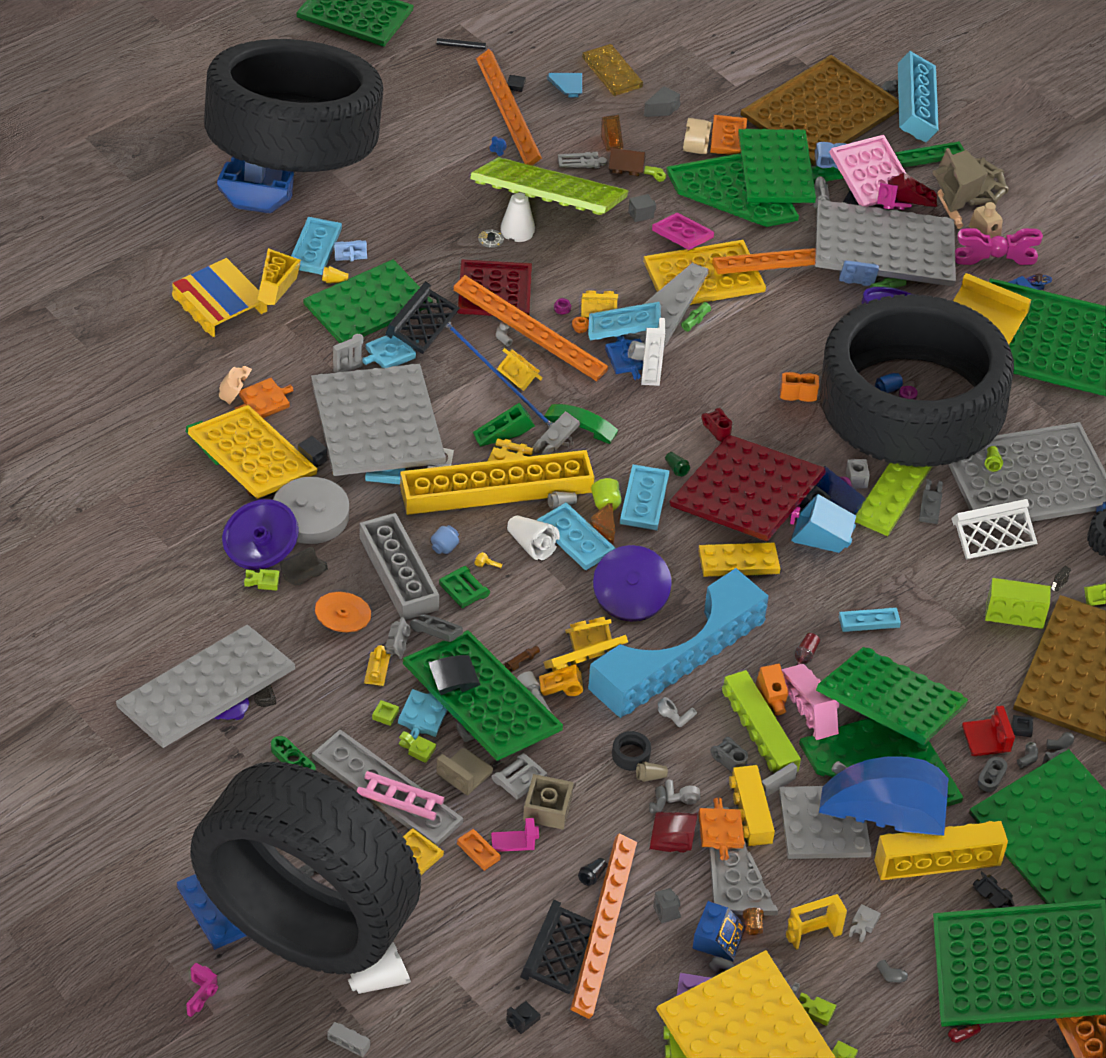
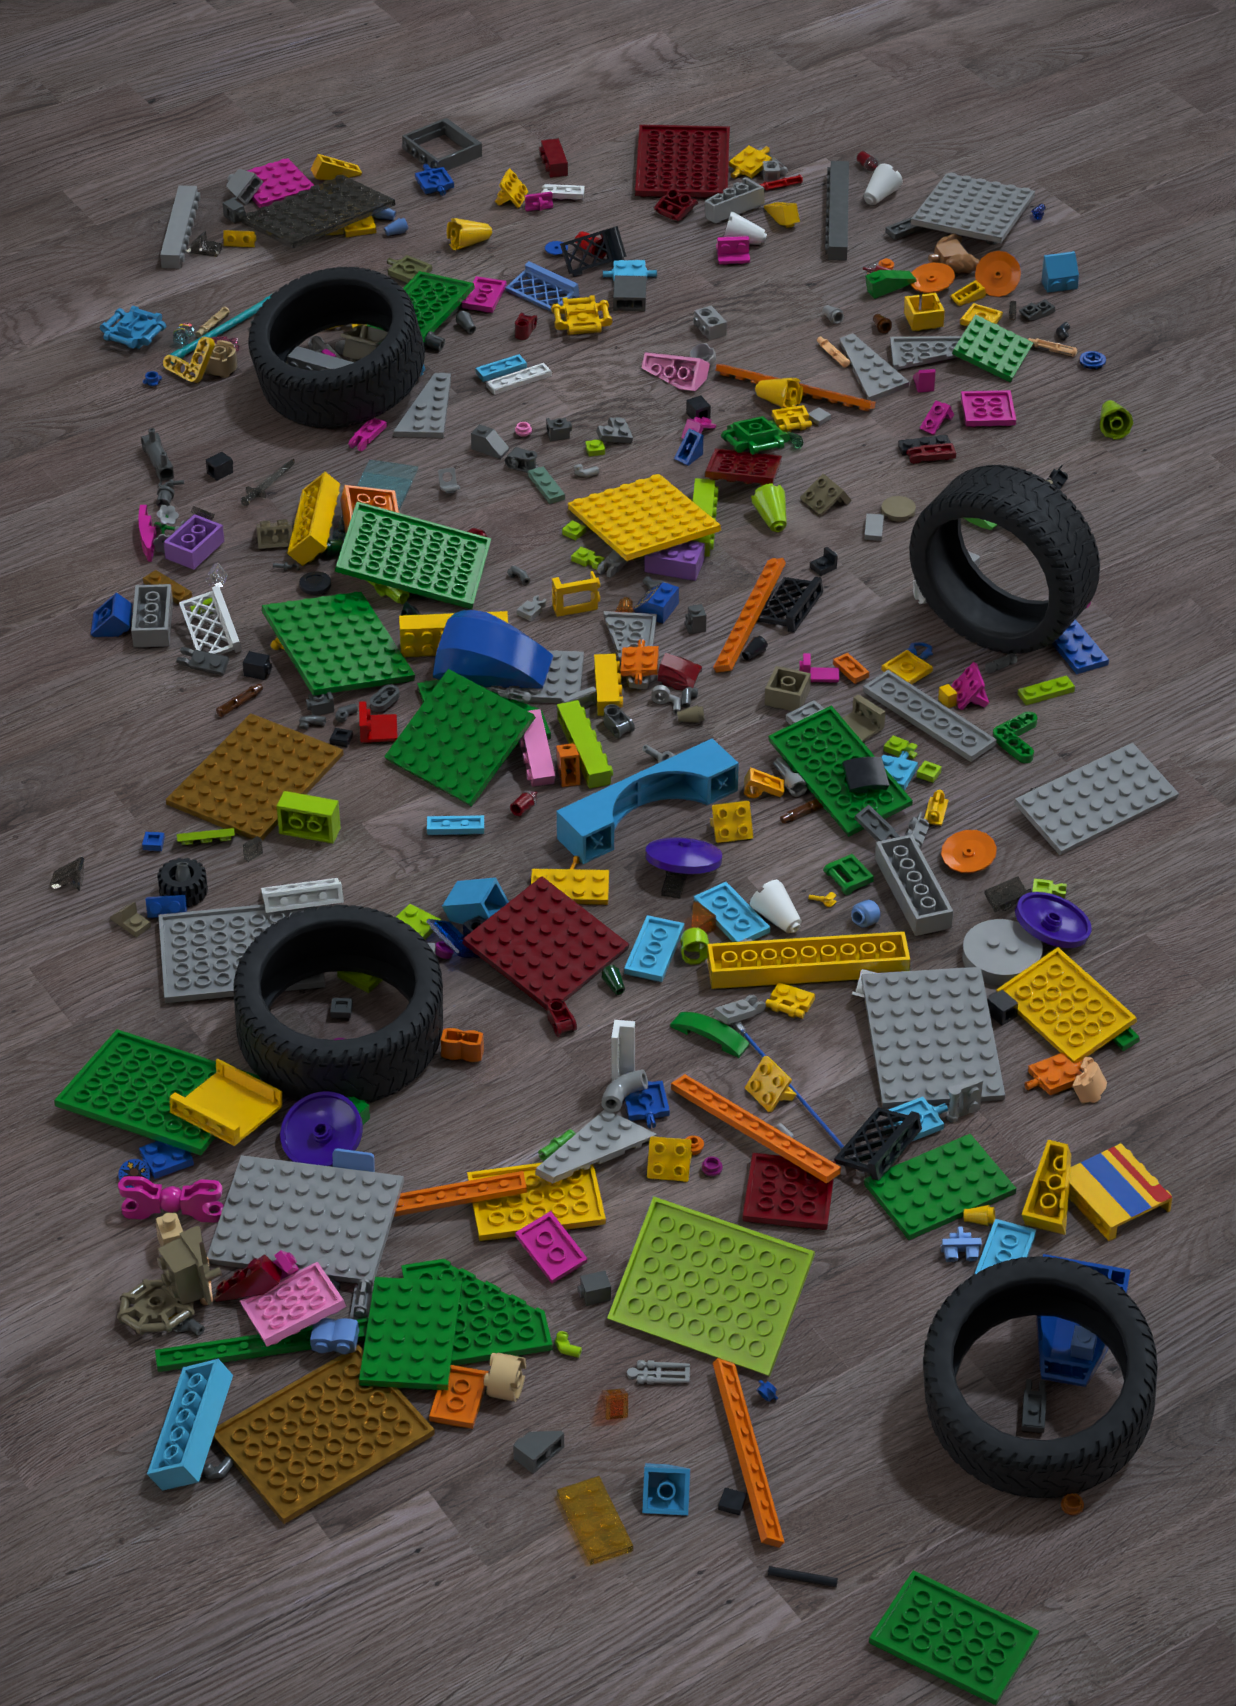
camera: 170 degrees left, 5 degrees down
(407, 804) = (911, 692): bright pink bar -> none
(505, 426) = (790, 1024): green slope -> none
(580, 655) = (755, 788): yellow plate -> none
(624, 320) = (641, 1119): medium azure plate -> none
(626, 161) = (601, 1360): reddish brown slope -> none
(630, 738) = (706, 721): black tyre -> none

